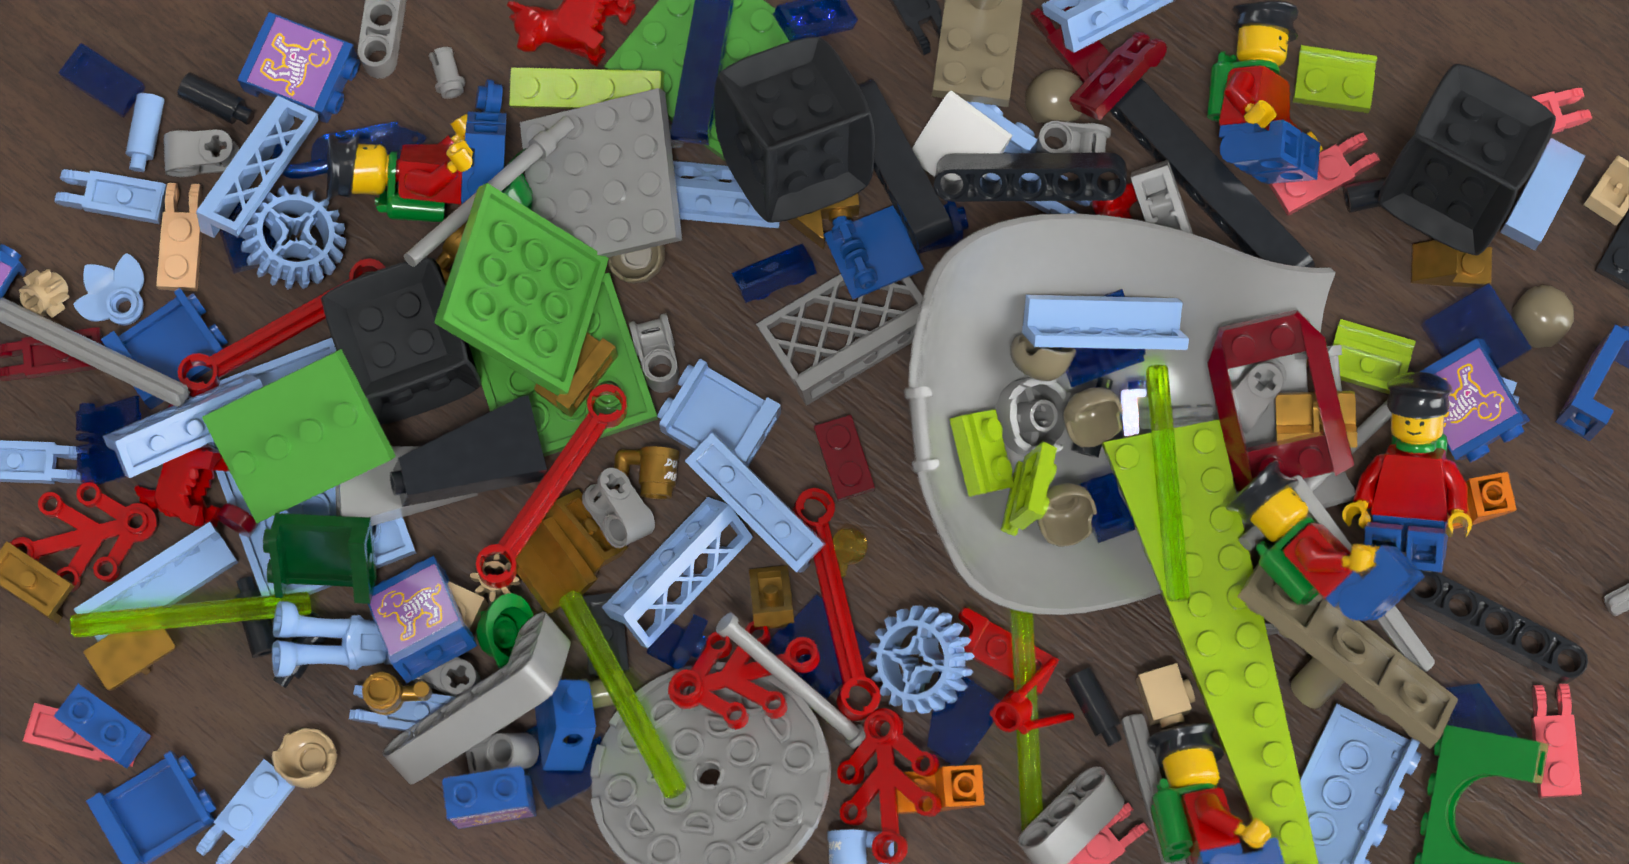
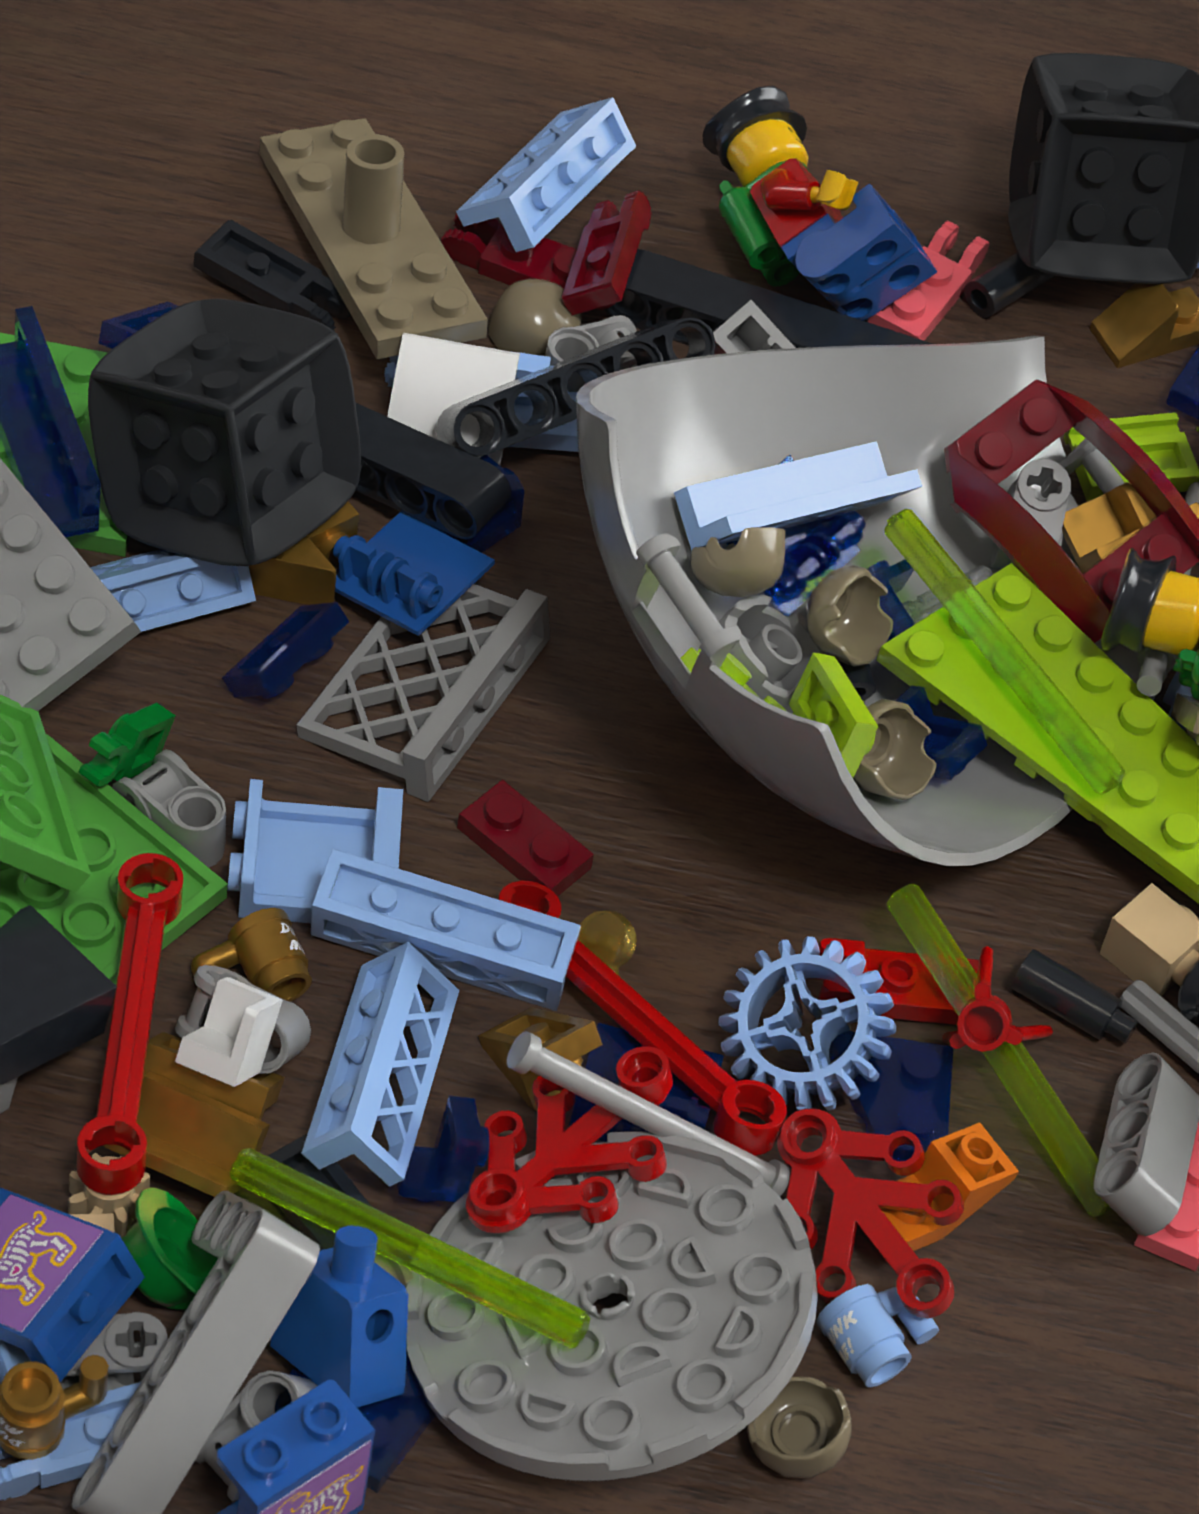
camera: 40 degrees left, 25 degrees down
(591, 366) = (101, 843): pearl gold panel -> none
(596, 524) = (233, 1035): none -> white panel
(638, 265) = (84, 707): dark tan hair -> none
(651, 302) = (128, 745): none -> green plate
(1334, 79) = (889, 170): lime plate -> none

